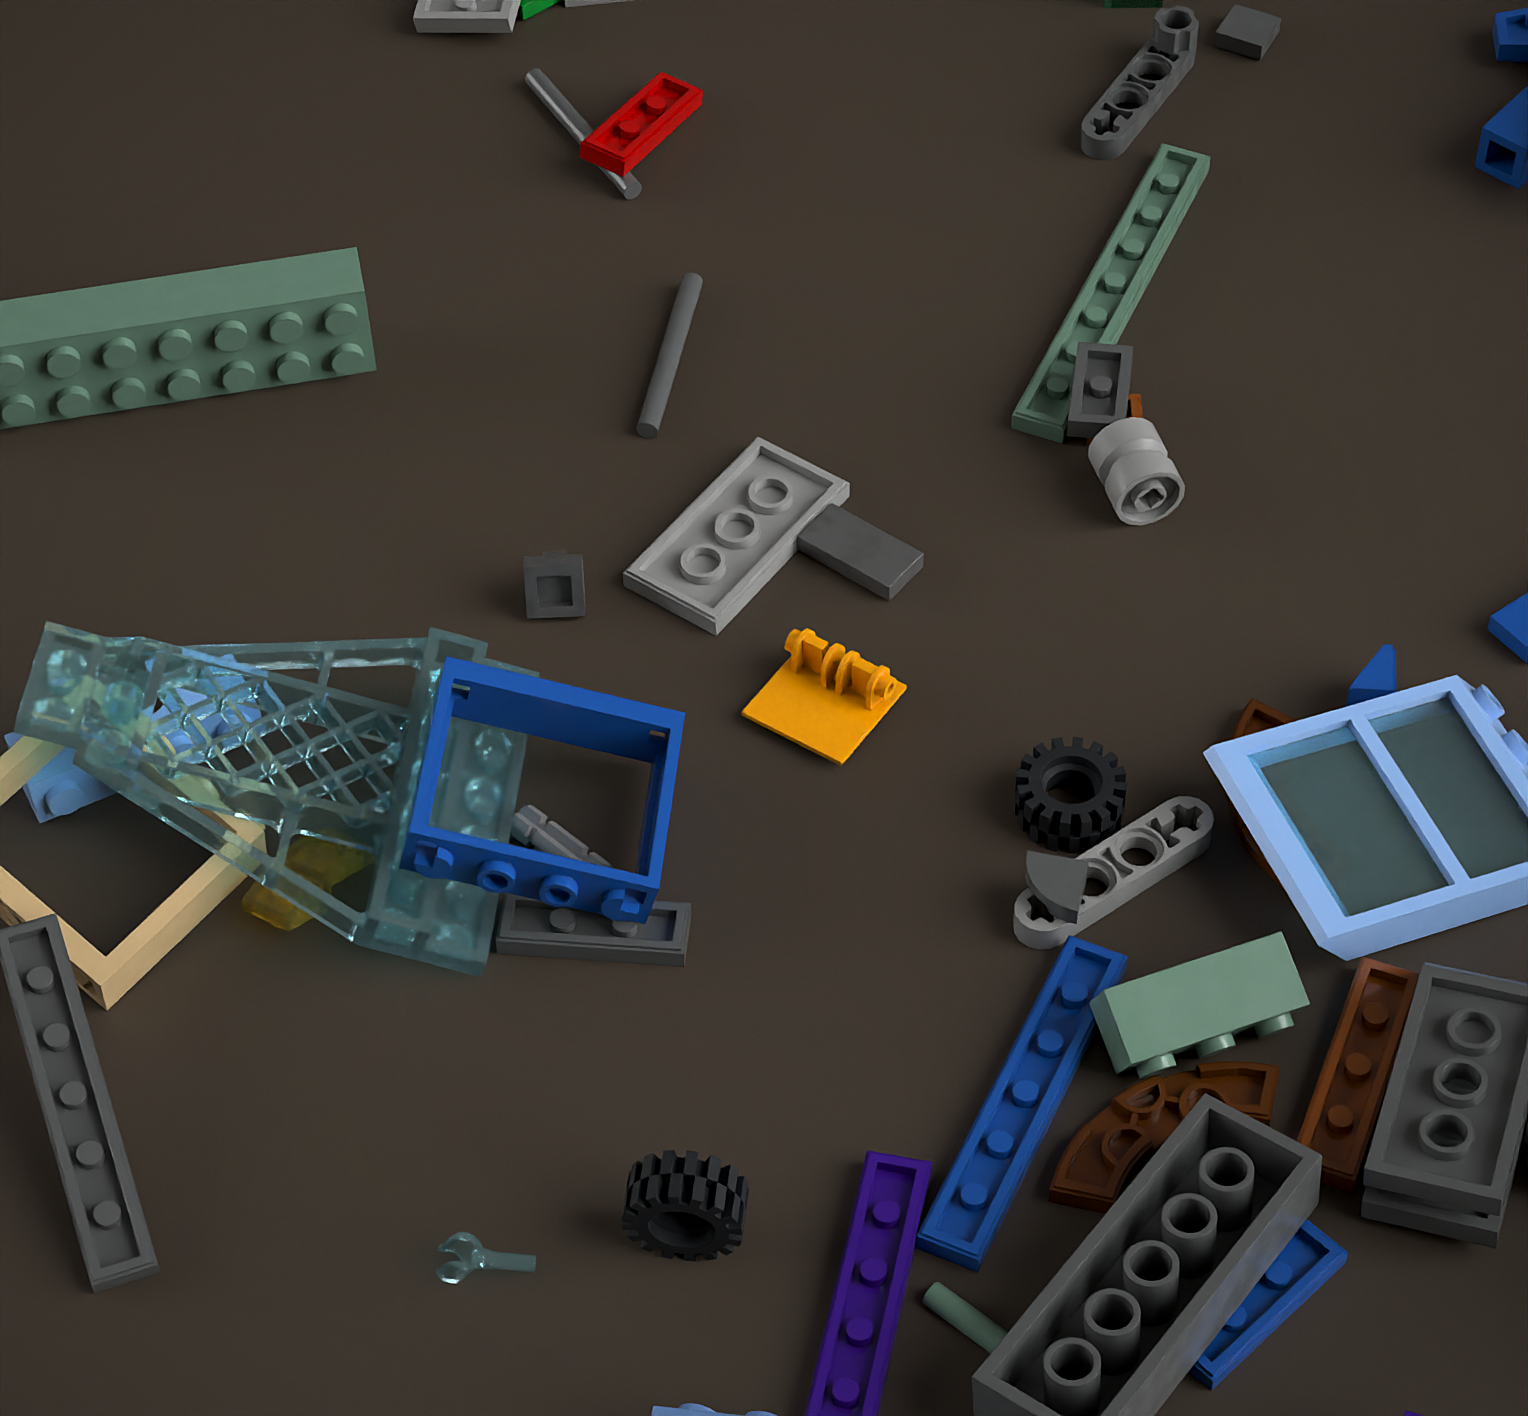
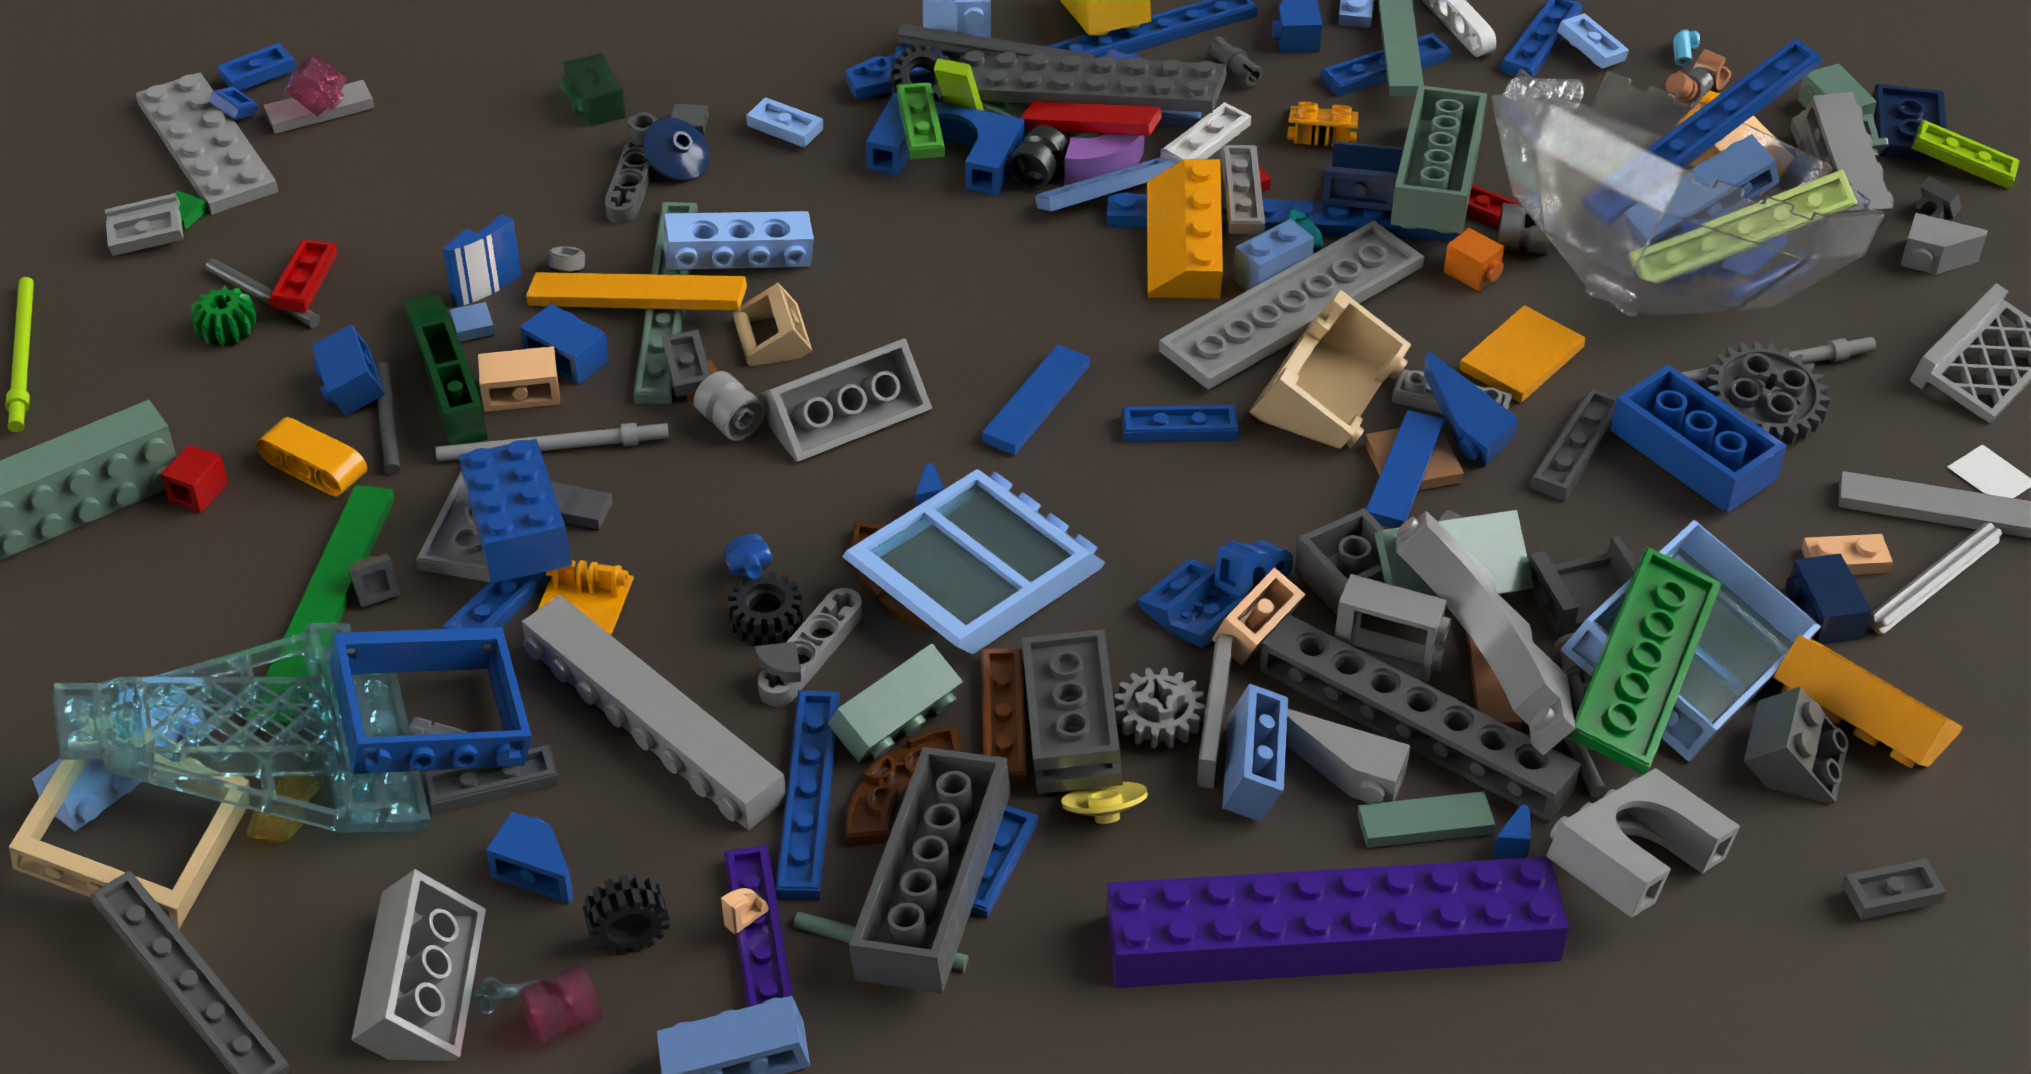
camera: 25 degrees left, 5 degrees down
(220, 195) = (17, 397): none -> lime bar
(379, 1190) = (419, 972): none -> light grey slope
(387, 370) = (194, 478): none -> red brick
(496, 576) = (331, 582): none -> green tile
(516, 152) = (223, 316): none -> green gear
(543, 1310) = (560, 1004): none -> clear pink wheel
(547, 383) = (311, 456): none -> light orange beam
(594, 1066) = (530, 858): none -> blue slope
(641, 274) = (347, 370): none -> blue brick
(709, 664) = (497, 602): none -> blue tile
(769, 308) = (446, 369): none -> dark green slope
(771, 544) = (515, 510): none -> blue brick
(836, 248) = (472, 322): none -> medium blue tile
(851, 909) = (654, 713): none -> light grey brick
(852, 1253) = (742, 908): none -> light nougat tile
(863, 349) = (518, 379): none -> light nougat brick
(876, 167) = (482, 261): none -> blue slope
(946, 315) = (577, 345): none -> blue brick
(981, 473) = (628, 434): none -> light grey bar
(998, 191) = (566, 259): none -> light grey tile
(1074, 707) = (747, 556): none -> blue piece
(1077, 265) = (637, 291): none -> light orange tile
(1197, 83) = (670, 158): none -> dark blue dish
(1244, 227) = (737, 240): none -> light blue brick
(1269, 388) = (786, 345): none -> tan tile
(1308, 510) = (846, 400): none -> light grey slope
(1380, 69) = (784, 122): none -> light blue plate
(1457, 1267) = (1105, 802): none -> light yellow dish

